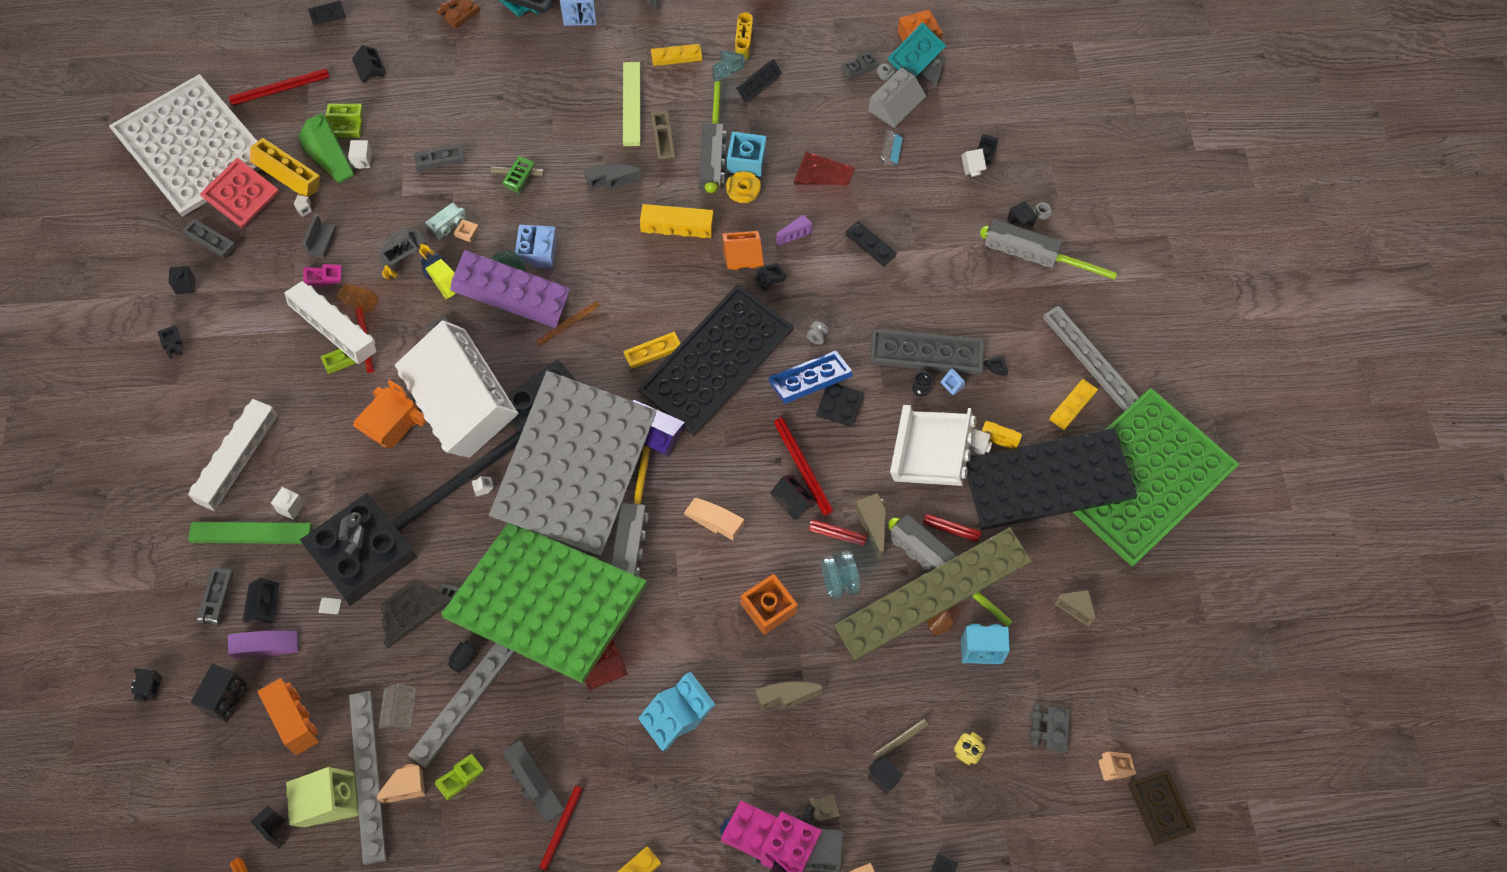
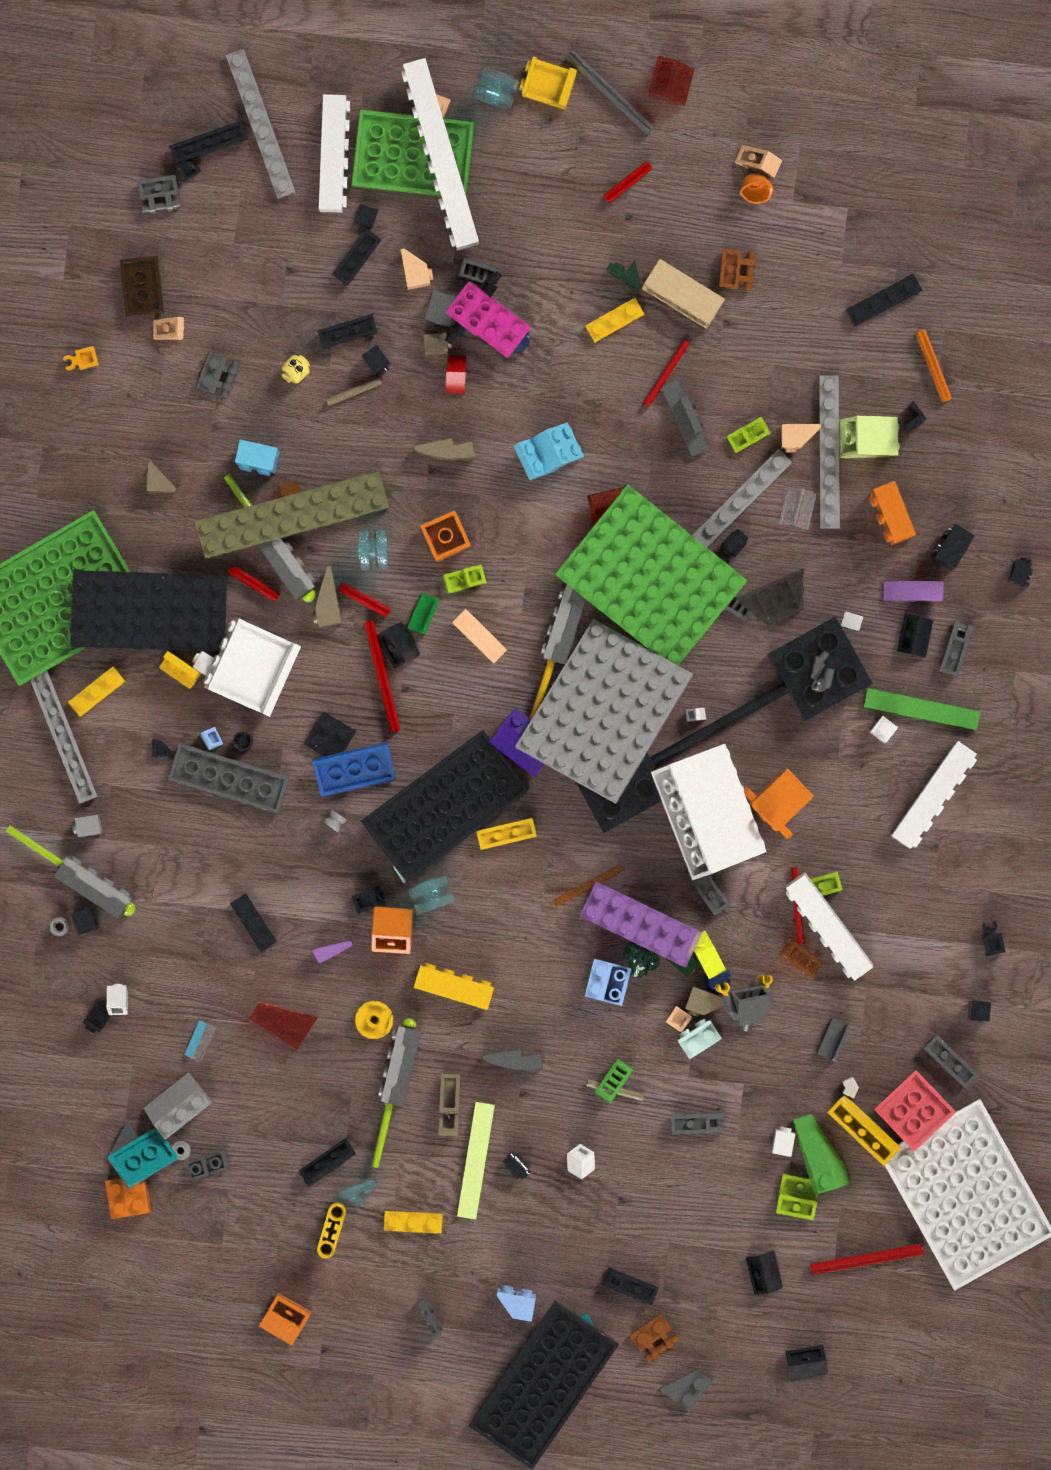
camera: 165 degrees left, 25 degrees up
(323, 276) = (835, 993): dark pink slope -> none
(447, 245) = (702, 1002): none -> dark tan slope
(483, 38) = (631, 1286): none -> black plate
(539, 114) = (580, 1161): none -> white panel
(594, 102) = (517, 1165): none -> black brick
(712, 282) = (431, 895): none -> clear light blue wheel
(741, 571) = (464, 579): none -> lime slope
(746, 153) = (362, 1057): medium azure brick -> none
(774, 530) = (423, 614): none -> green panel
(794, 780) = (456, 374): none -> red slope
(924, 802) = (347, 331): none -> black plate
(1043, 290) = (87, 826): none -> light grey brick
(1195, 716) = (84, 358): none -> light orange plate

